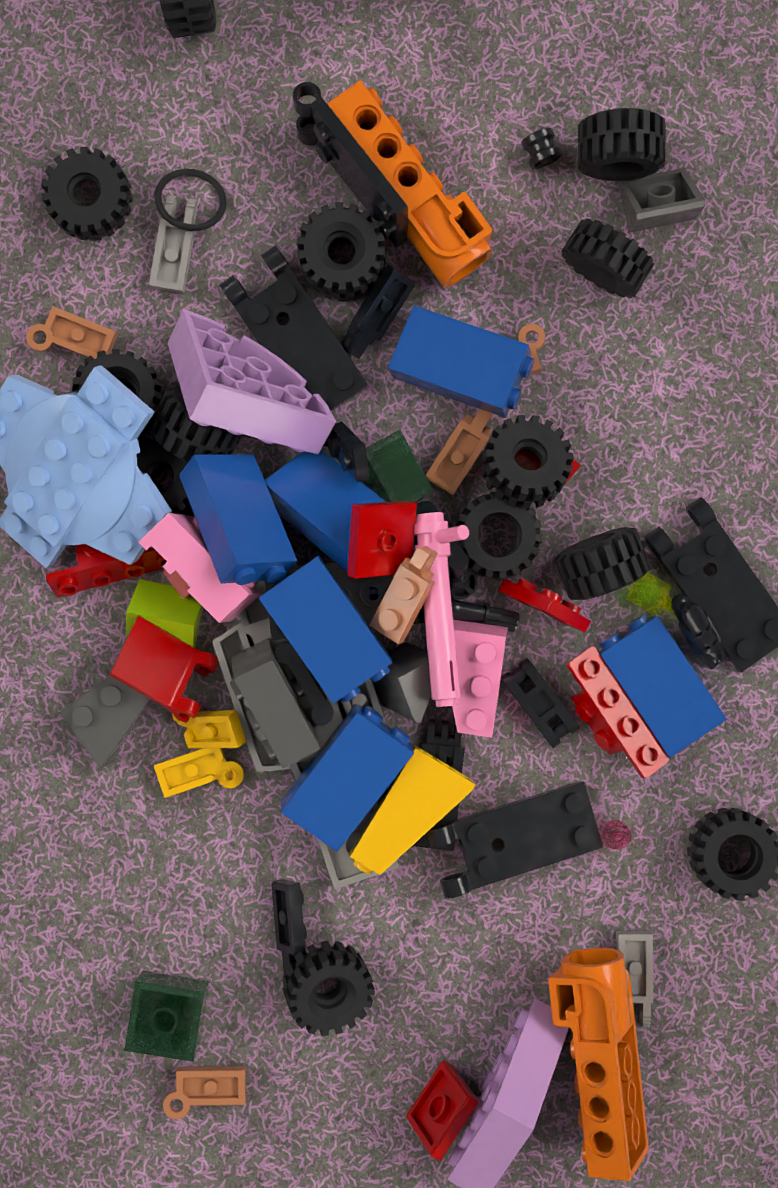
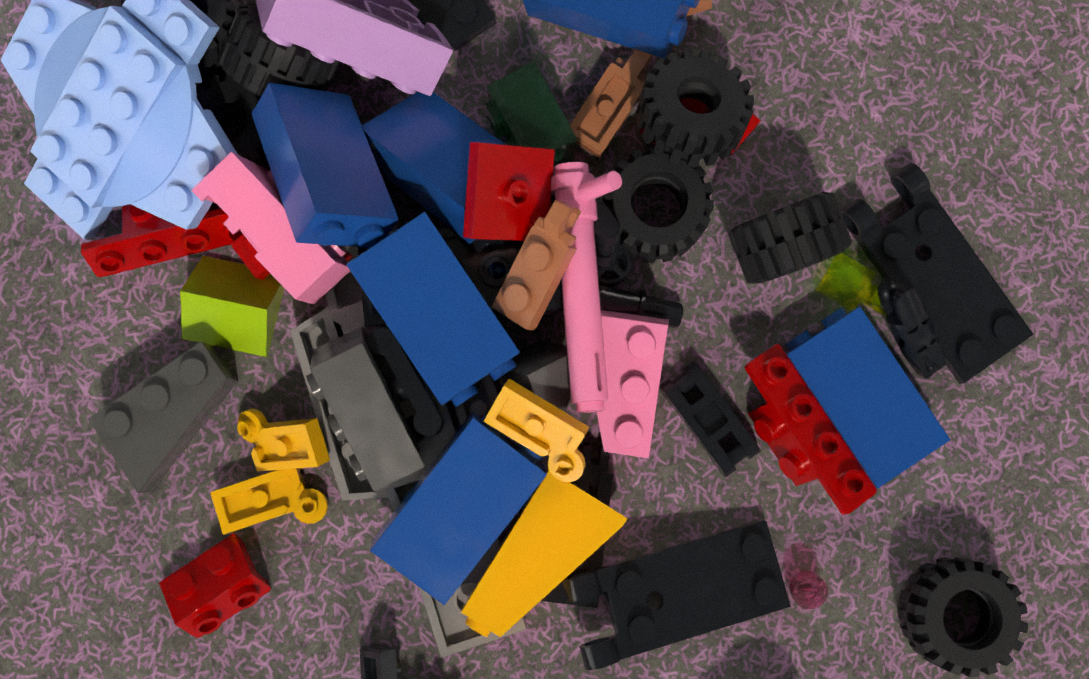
camera: 10 degrees left, 5 degrees down
(158, 837) = (213, 587): none -> red bracket
(161, 667) = (222, 362): red flag -> none
(348, 451) = (468, 91): black hinge -> none
(408, 719) = (540, 428): none -> yellow hinge
(546, 602) = (719, 287): red plate -> none

